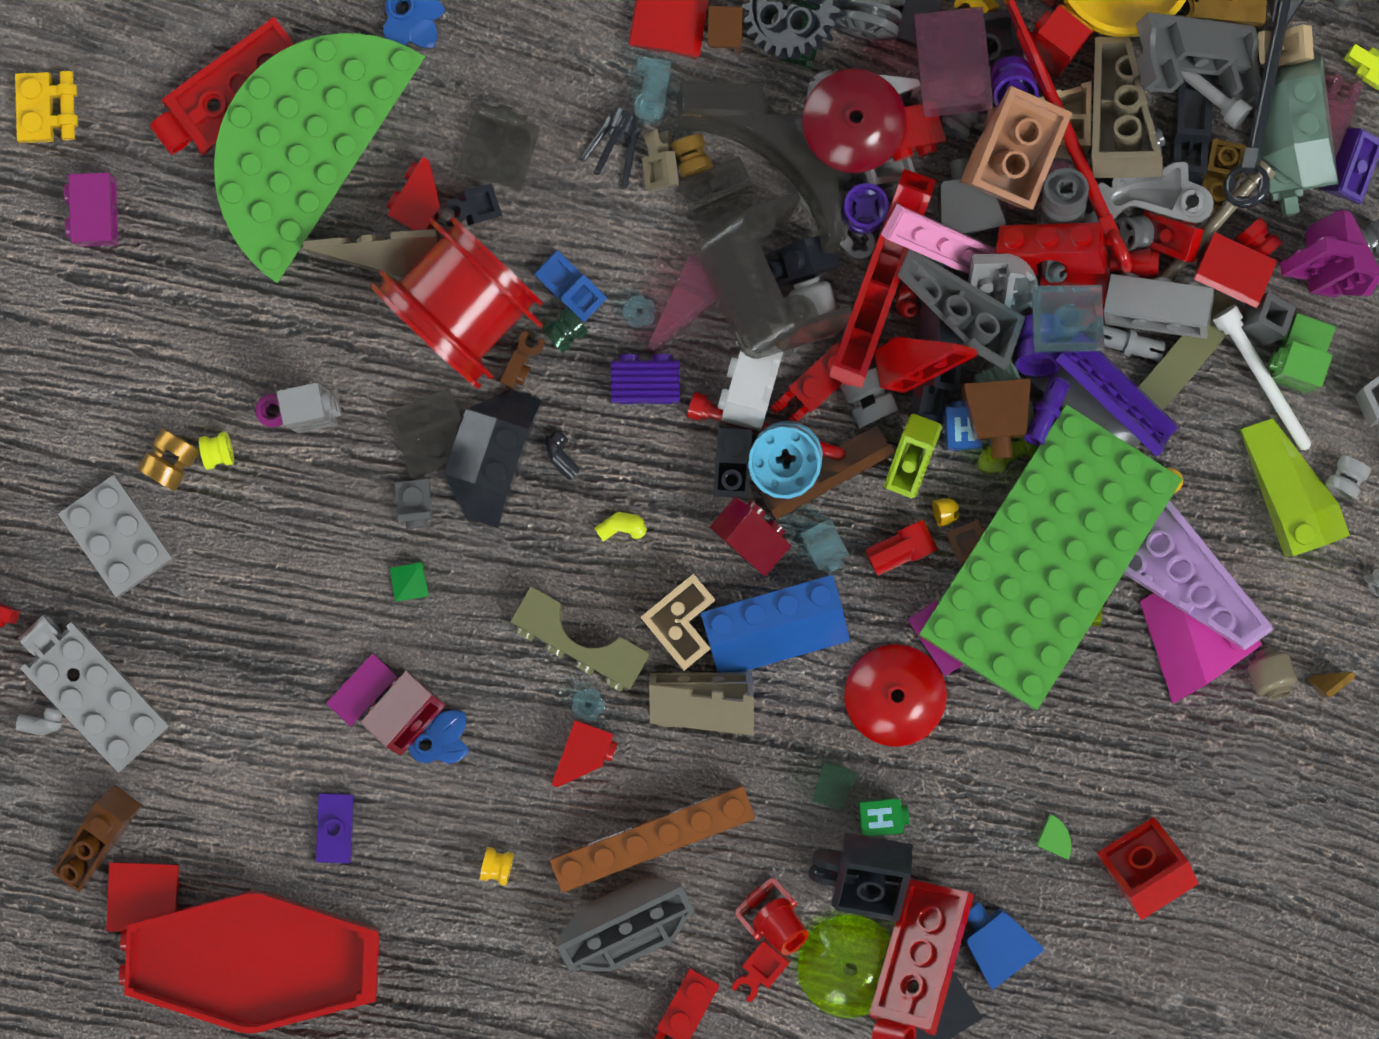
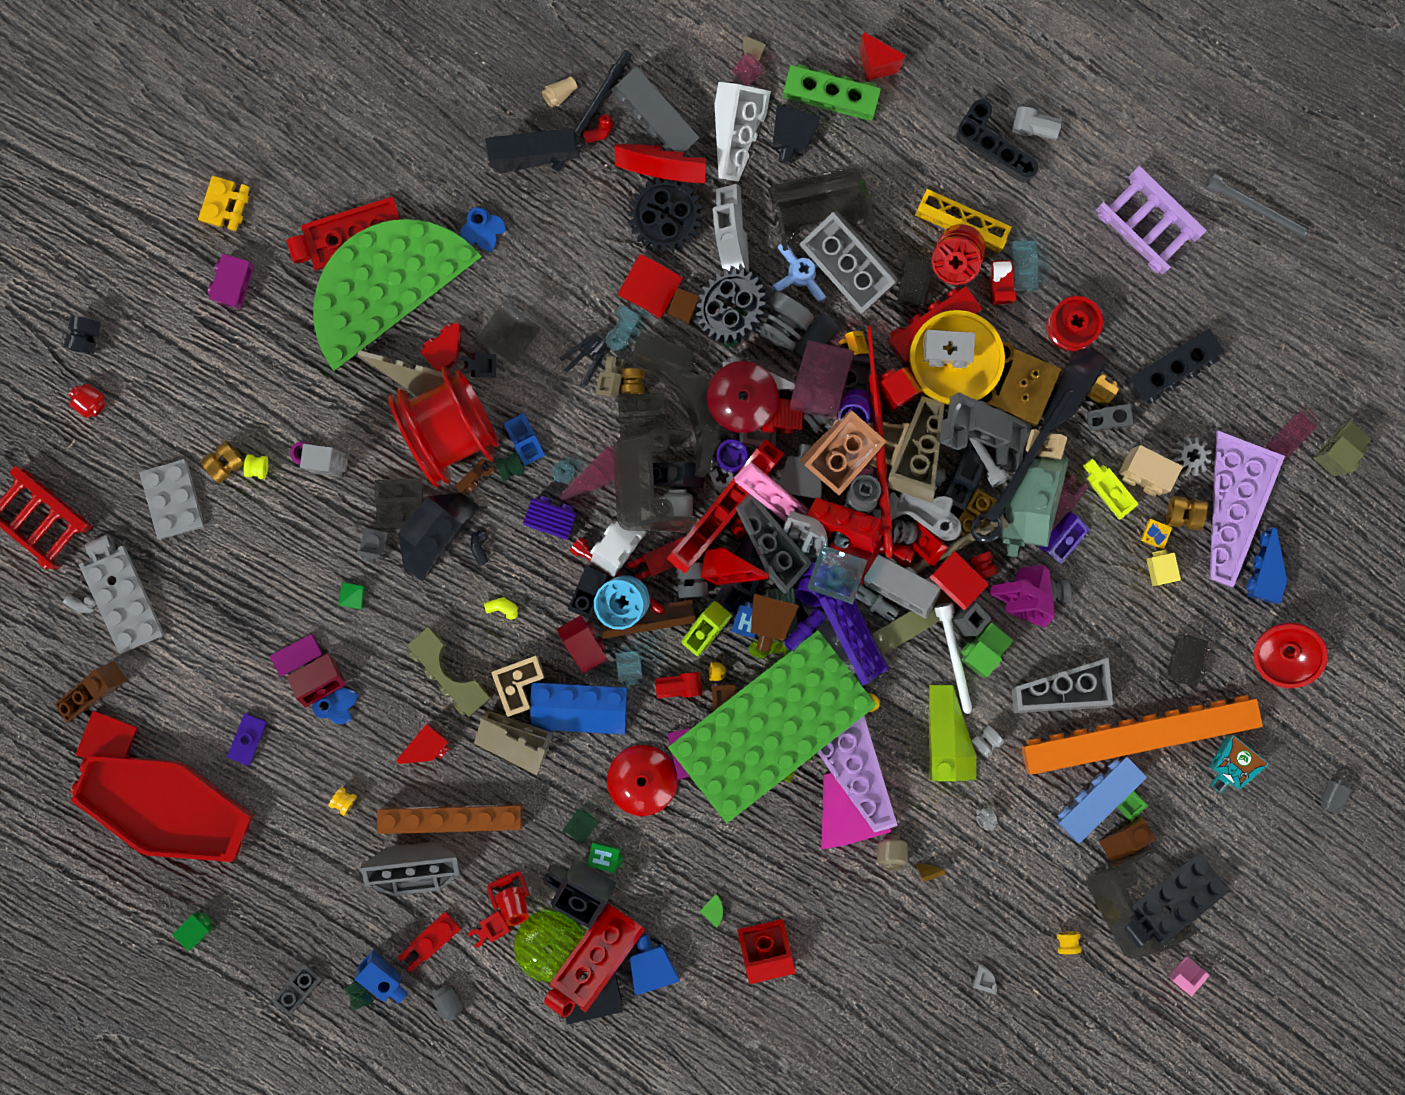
camera: 20 degrees right, 0 degrees up
(592, 713) = (433, 716): clear light blue plate -> none

